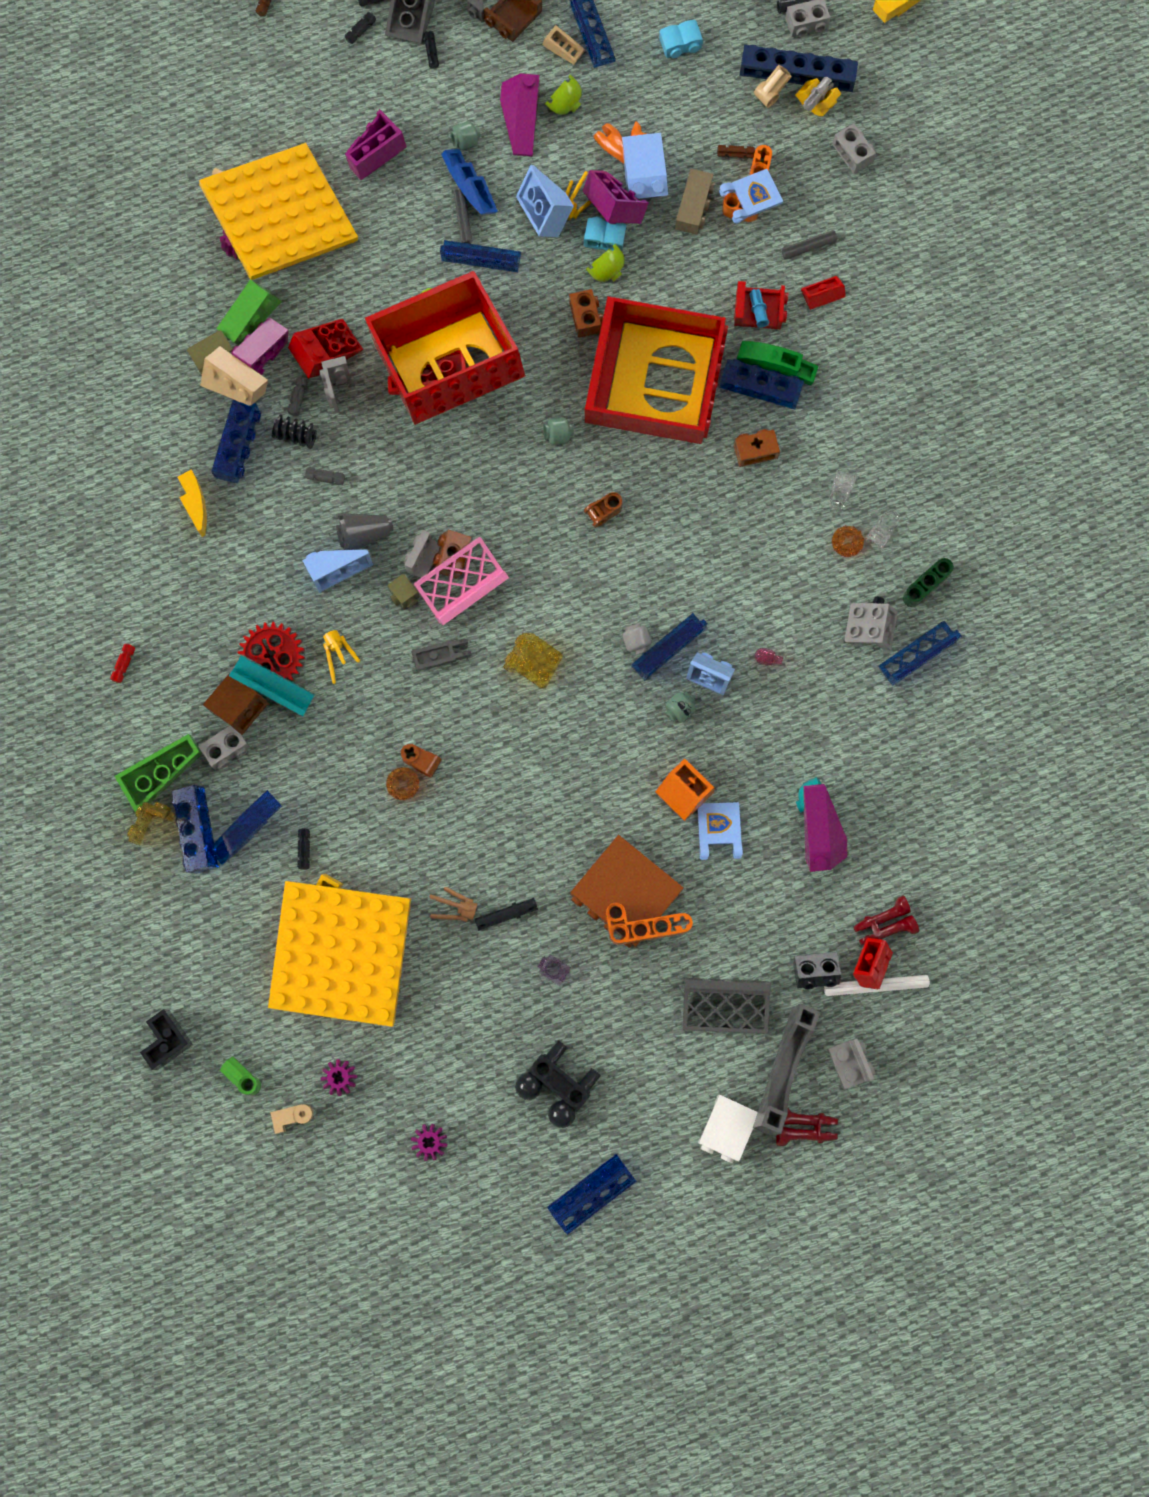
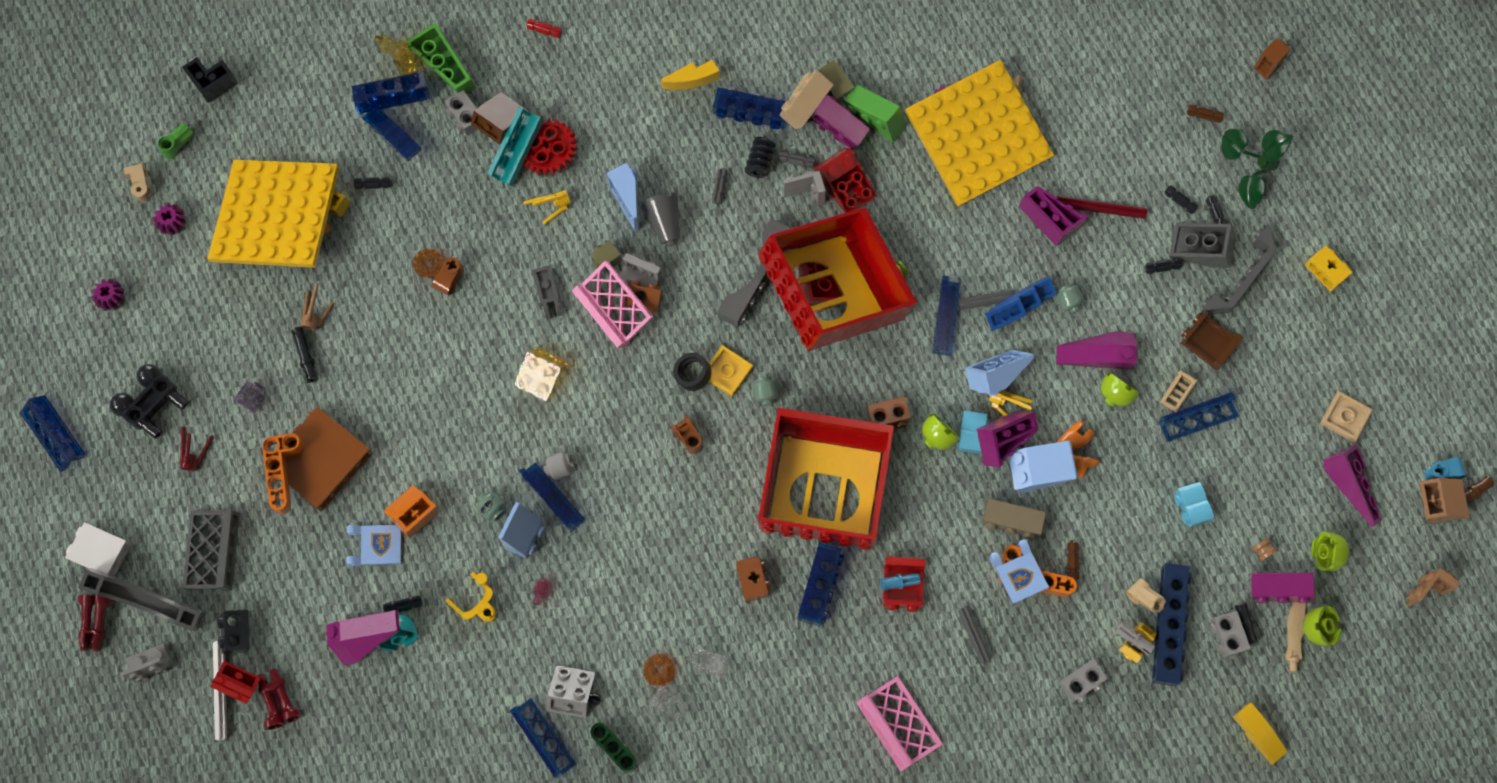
camera: 90 degrees right, 5 degrees down
(365, 100) = (1104, 207): none -> dark red axle
(393, 421) = (736, 305): none -> dark grey arch
(521, 502) = (683, 362): none -> black tyre
(533, 471) = (728, 370): none -> yellow tile
(627, 1035) = (187, 460): none -> dark red plant
(778, 359) = (843, 600): green slope -> none
(784, 797) = (404, 604): none -> black axle
(785, 715) = (482, 606): none -> yellow piece
(823, 292) = (923, 649): red slope -> none
(908, 328) = (883, 728): none -> bright pink fence

